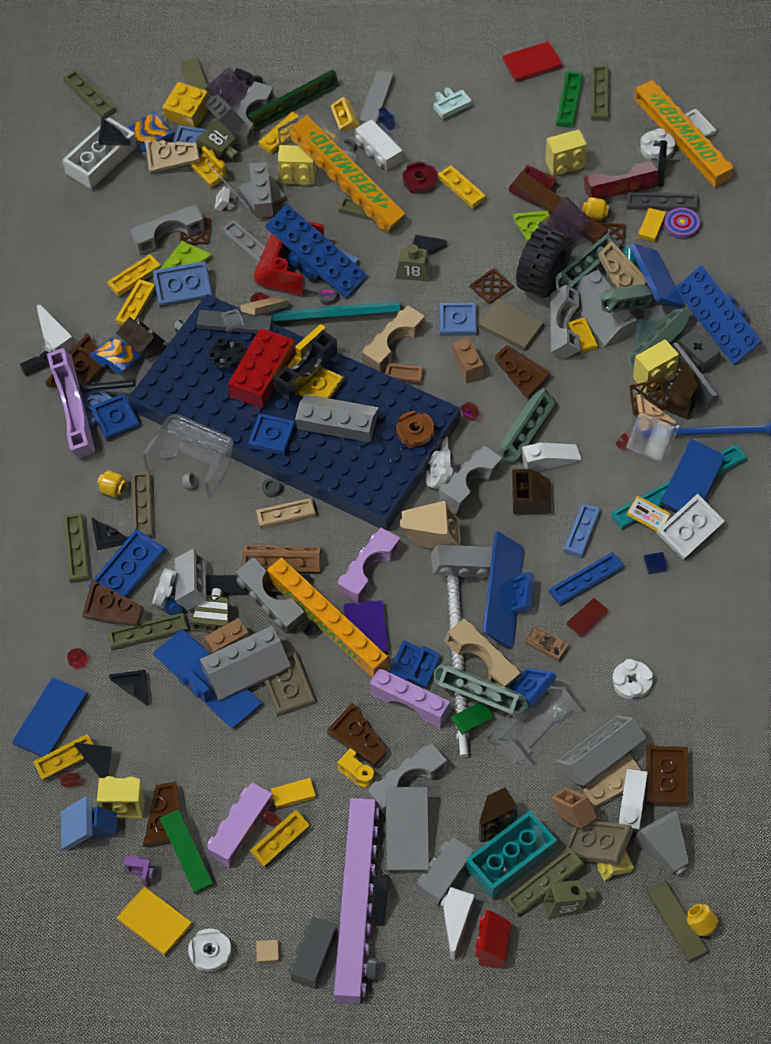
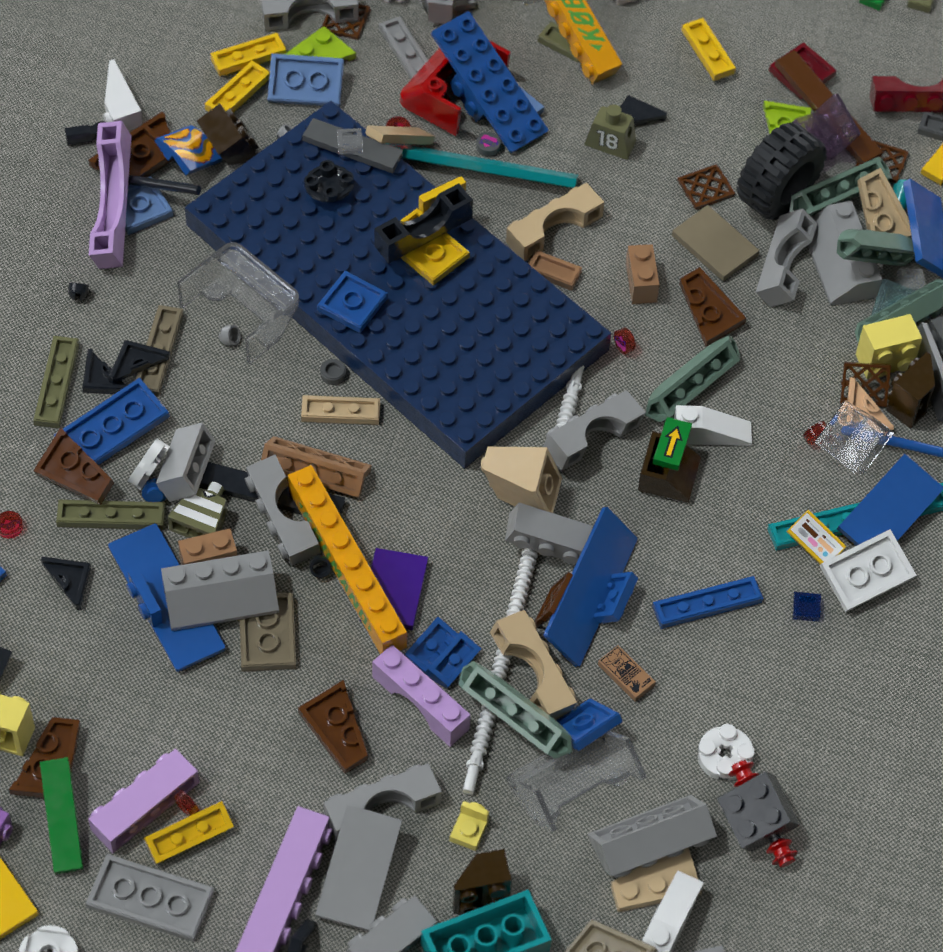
camera: 10 degrees right, 0 degrees up
(67, 477) = (78, 289): none -> black hinge
(112, 483) = (129, 312): yellow head -> none
(114, 416) = (162, 227): blue tile -> none
(128, 515) = (136, 358): none -> black tile
(261, 363) = (373, 200): red brick -> none
(266, 890) = (150, 897): none -> light grey tile
(293, 793) = (227, 778): yellow tile -> none
(336, 418) = (442, 302): light grey slope -> none
(353, 769) = (317, 771): yellow leg -> none
(381, 547) = (449, 487): lavender arch -> none
(415, 438) = (537, 356): dark orange plate -> none
(422, 185) = (657, 34): dark red plate -> none
(439, 469) = (557, 407): white plate -> none
(457, 319) = (648, 218): medium blue tile -> none
(472, 717) = (494, 744): green tile -> none
(473, 778) = (470, 825): none -> light yellow bracket
(480, 605) = (553, 599): none -> reddish brown window
(529, 474) = (672, 443): none -> green tile
(566, 152) = (858, 39): light yellow brick -> none
(573, 807) = (589, 902): medium nougat brick -> none
(582, 329) = (808, 289): yellow tile -> none
(582, 530) = (722, 536): medium blue tile -> none
(587, 617) = (692, 653): clear red tile -> none
(595, 208) = (875, 122): yellow head -> none
(667, 775) = (730, 895): reddish brown plate -> none
(670, 713) = (760, 813): none -> black brick

